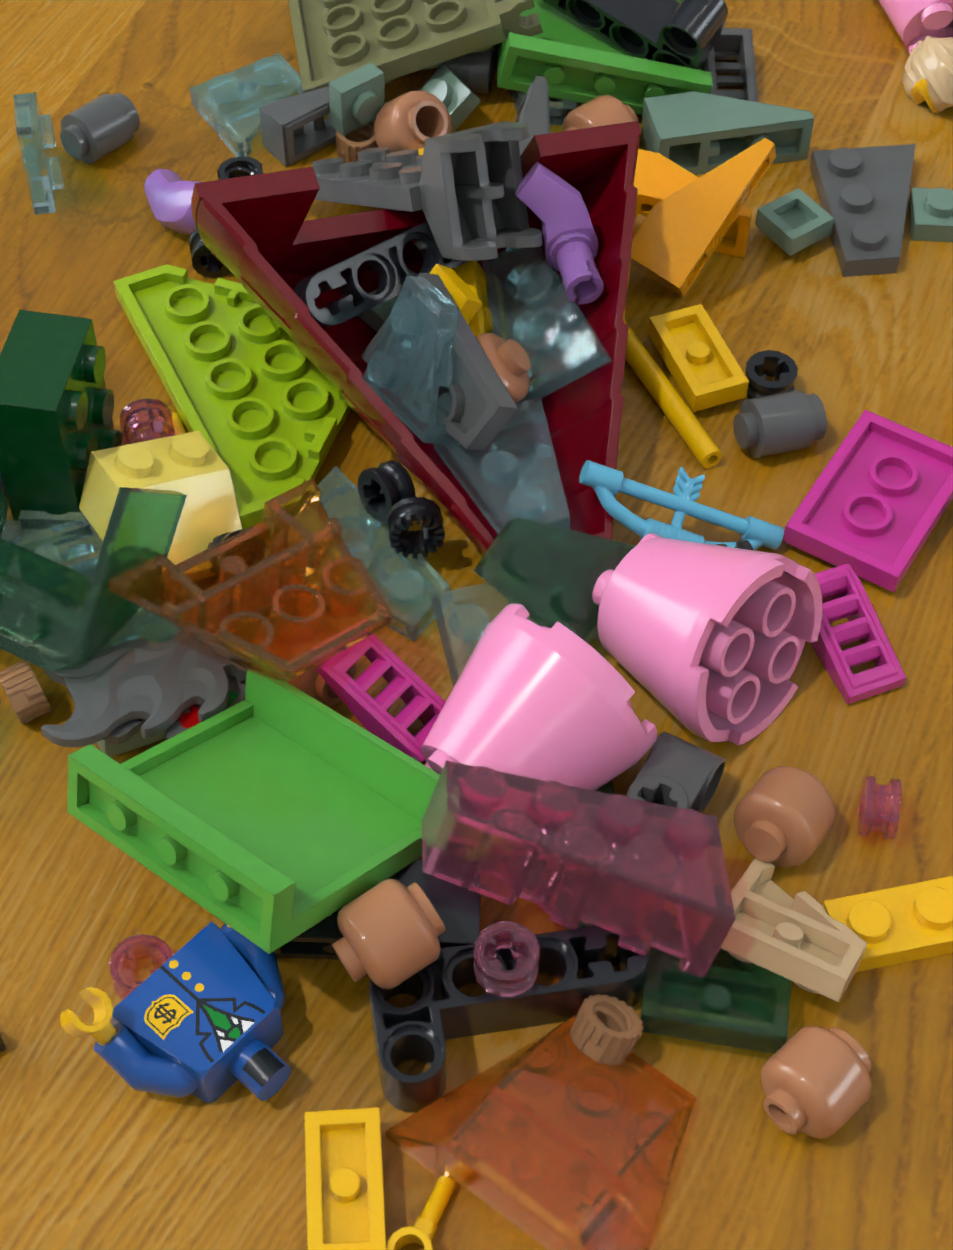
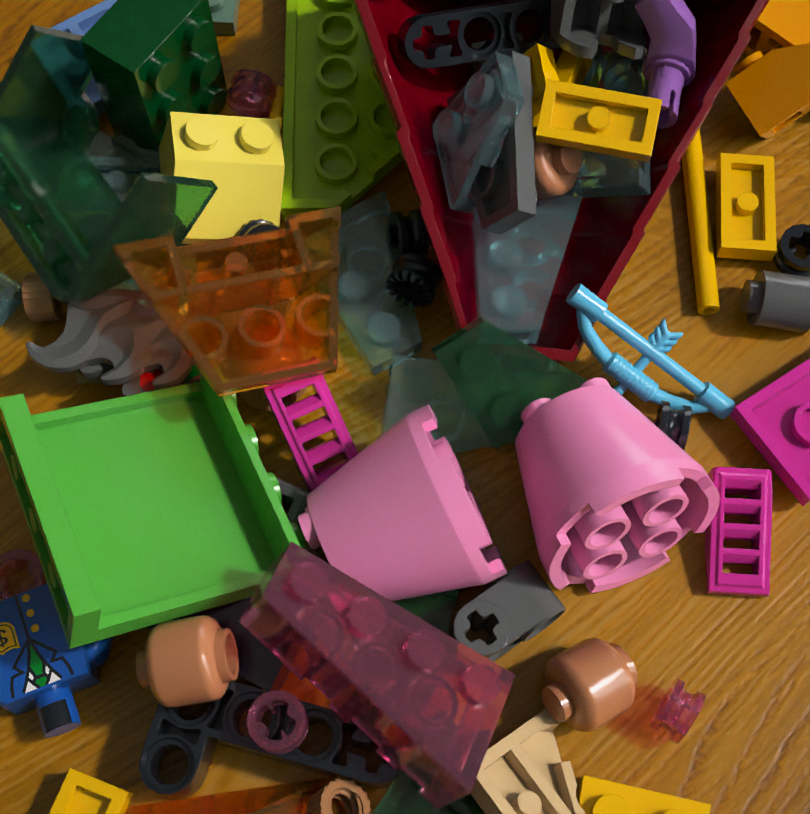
camera: 25 degrees right, 15 degrees up
(532, 307) = (598, 120): none -> yellow plate

